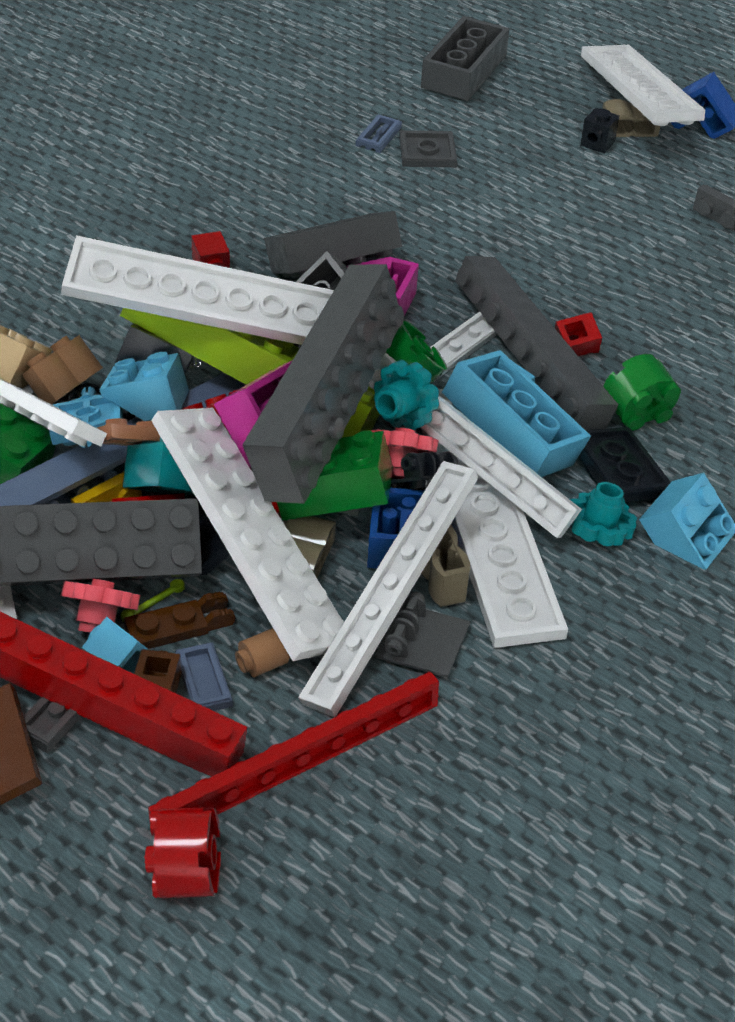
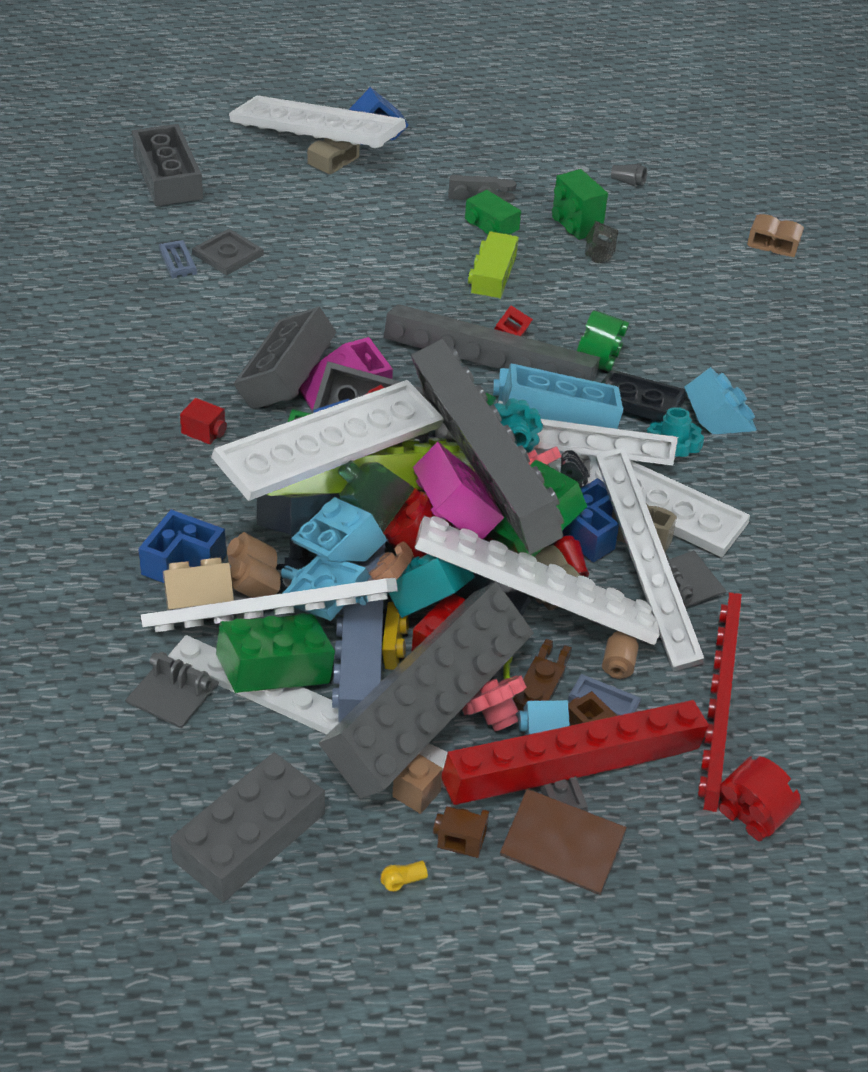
camera: 45 degrees left, 0 degrees up
(47, 319) = (180, 540): none -> blue brick
(205, 367) = (374, 490): none -> clear green torso
(347, 546) = (573, 554): none -> red cone
(599, 130) = (329, 172): black brick -> none
(644, 279) = (493, 264): none -> lime brick
(705, 239) = (492, 213): none -> green brick

